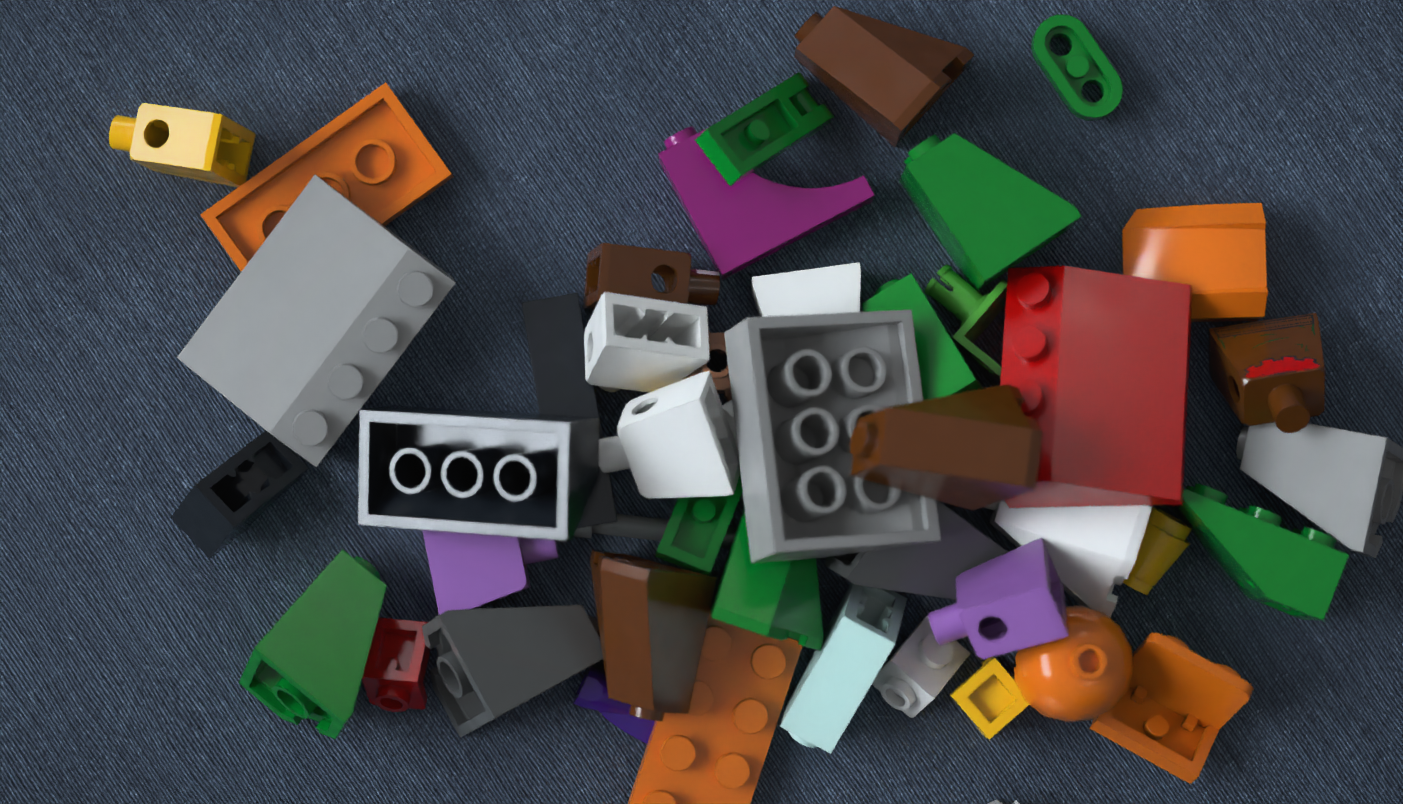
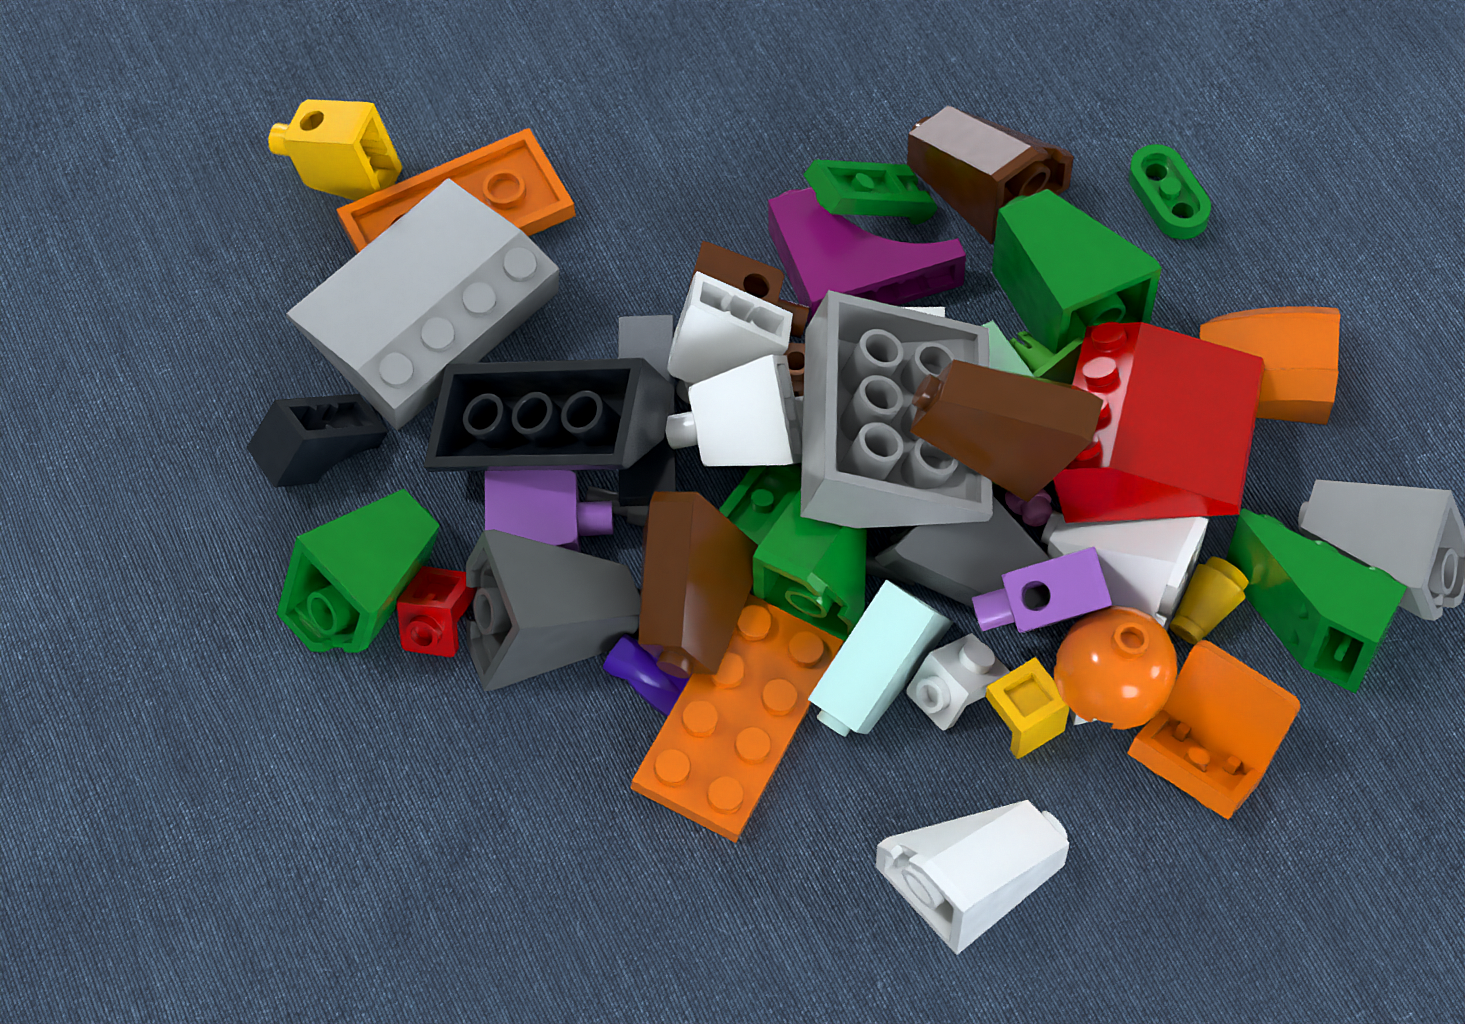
camera: 10 degrees right, 25 degrees down
(1270, 370) = (1337, 444): reddish brown torso -> none

